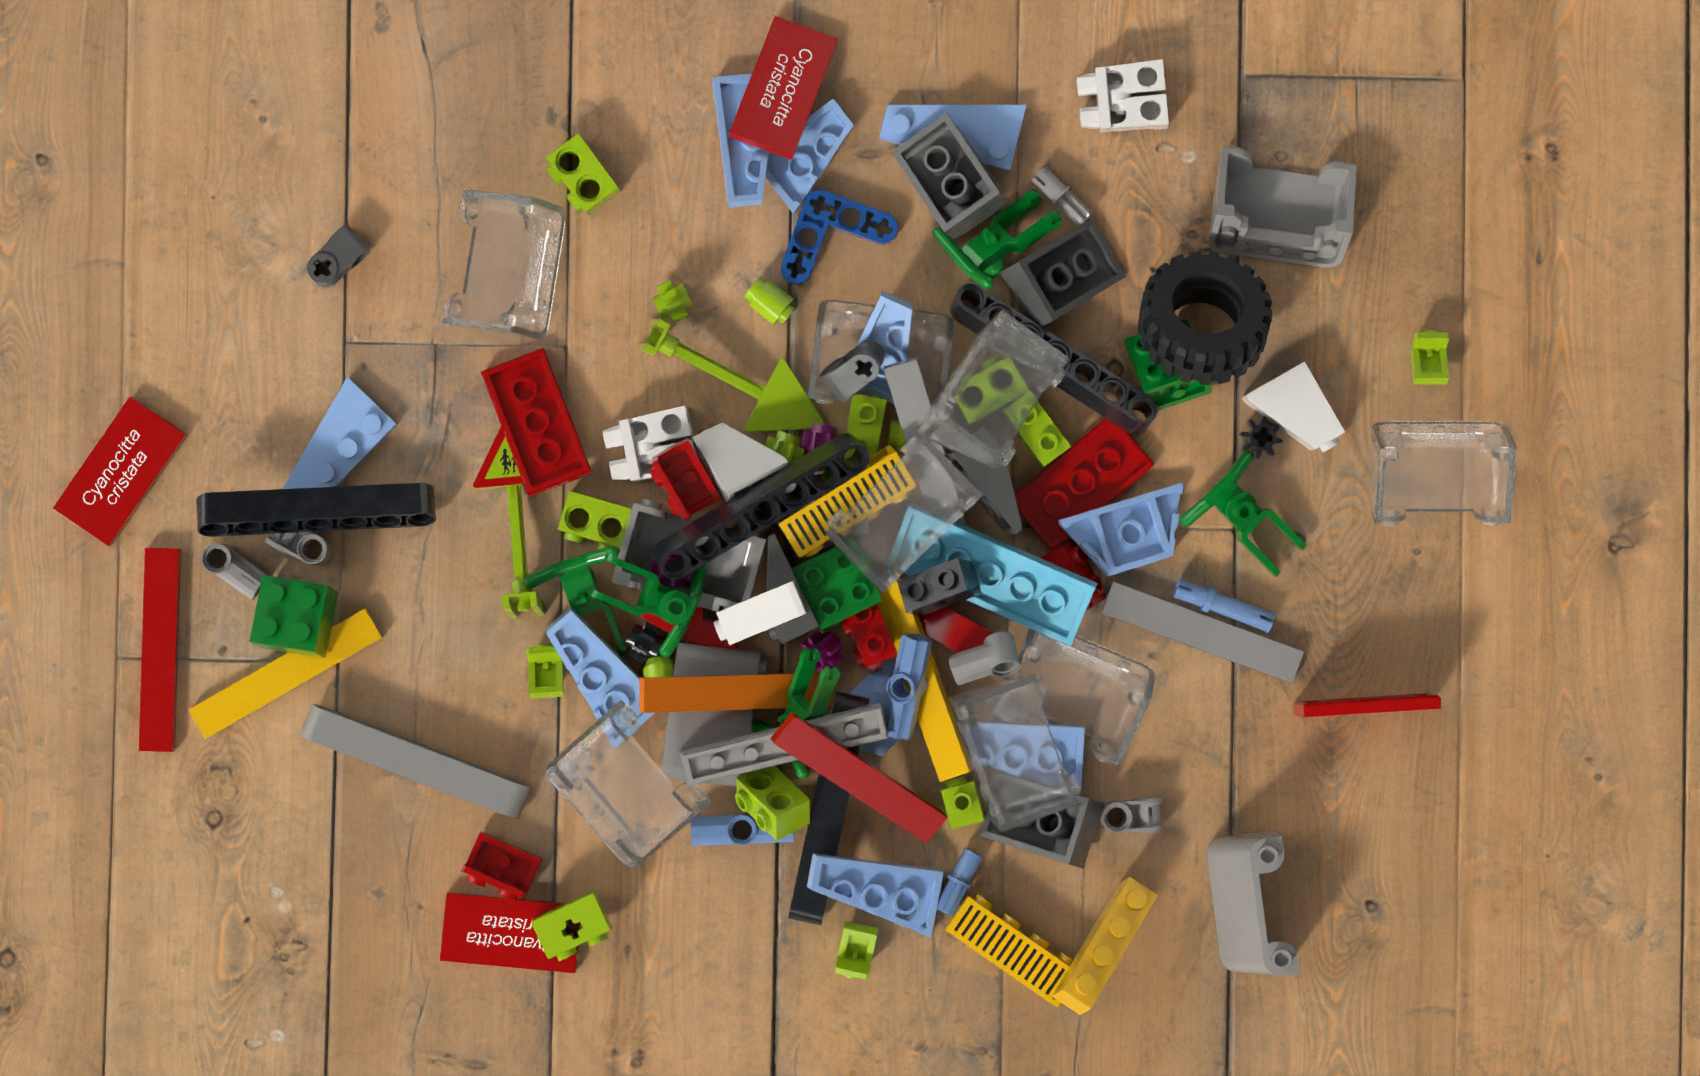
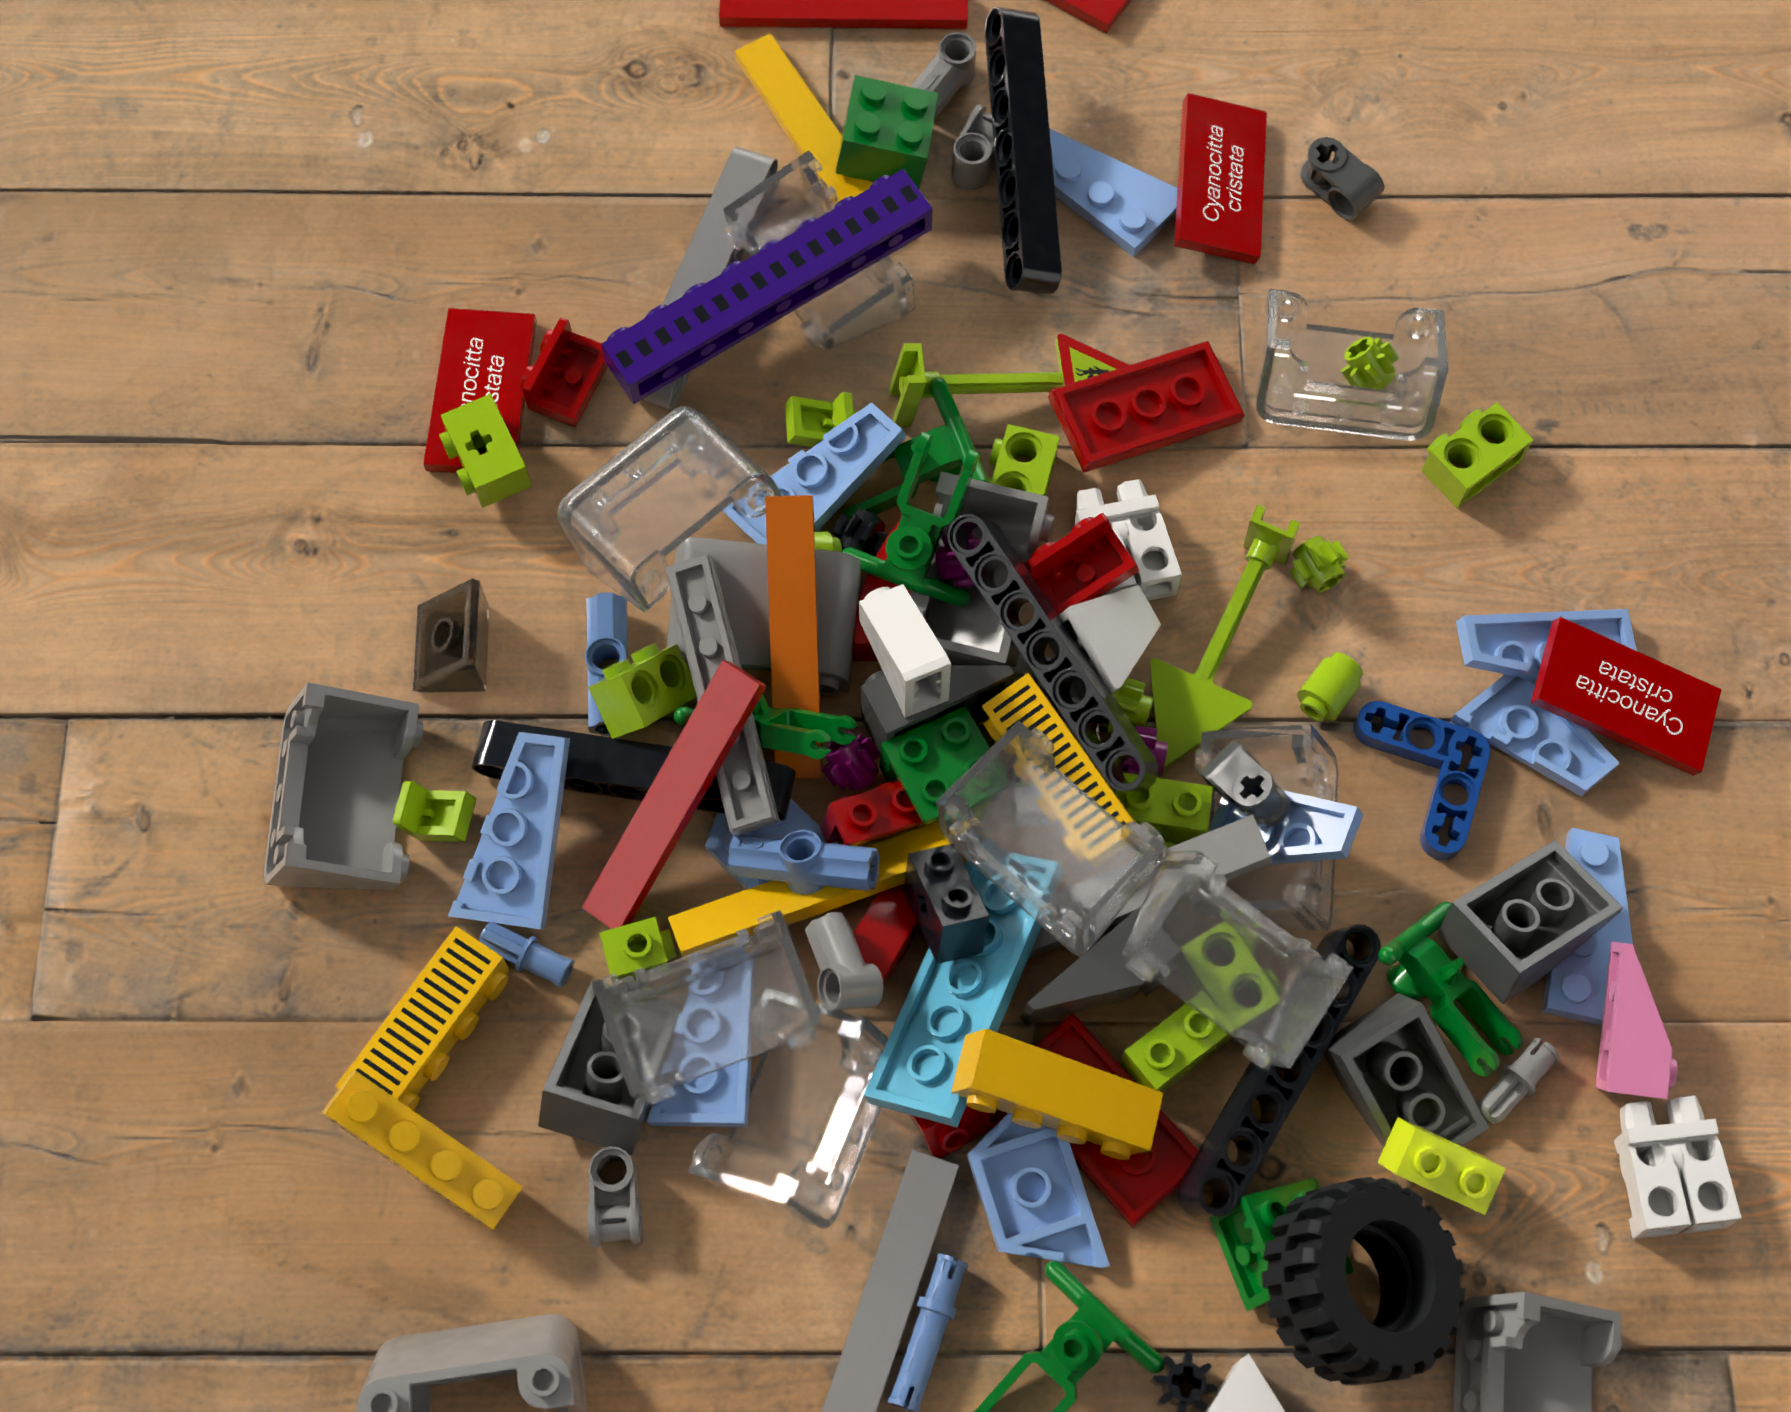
camera: 90 degrees right, 20 degrees down
(333, 352) = (1221, 179): none -> red tile
(412, 671) = (849, 309): none -> clear windscreen
(441, 710) = (767, 285): none -> dark purple brick
(508, 250) = (1370, 363): none -> lime gear
(721, 945) = (452, 641): none -> clear smoke slope
(841, 1020) = (340, 791): none -> light grey windscreen
(1045, 115) = (1633, 1041): none -> bright pink slope
(1076, 515) = (1057, 1094): none -> yellow brick
(1123, 256) = (1441, 1165): none -> neon yellow brick

